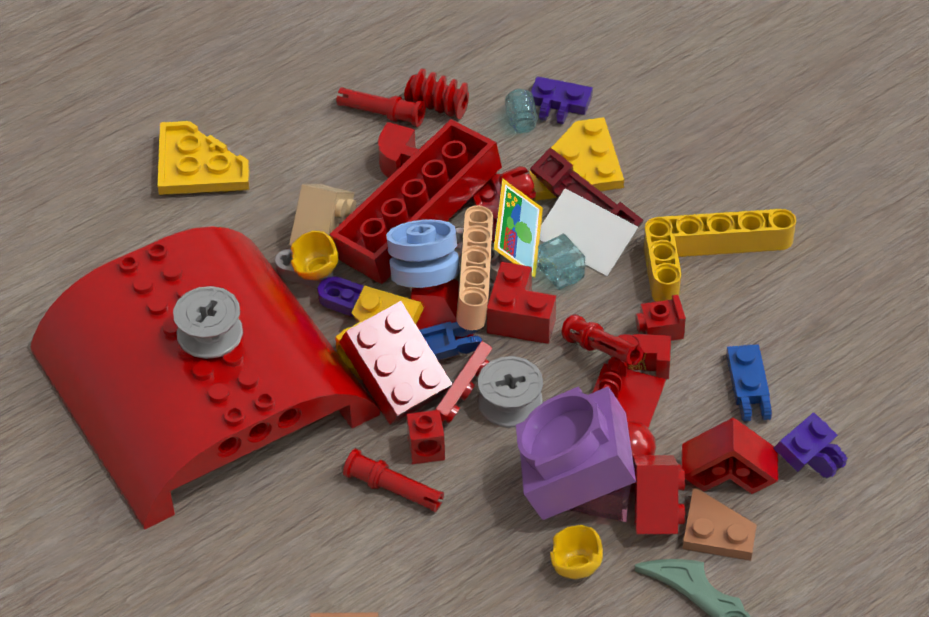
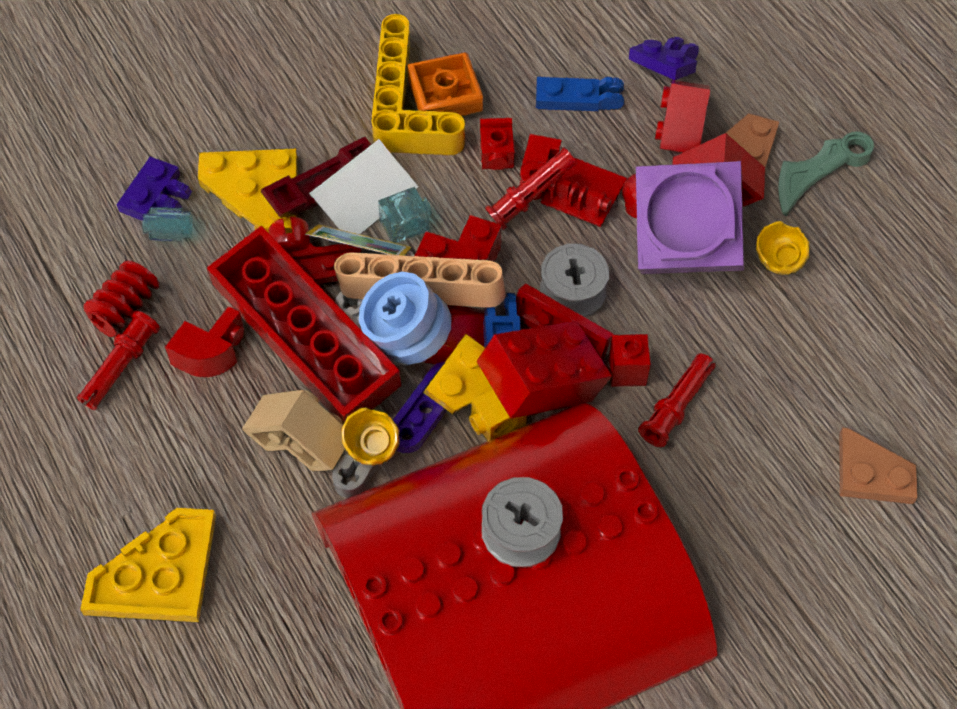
camera: 85 degrees left, 10 degrees up
(720, 272) = (446, 85): none -> orange brick

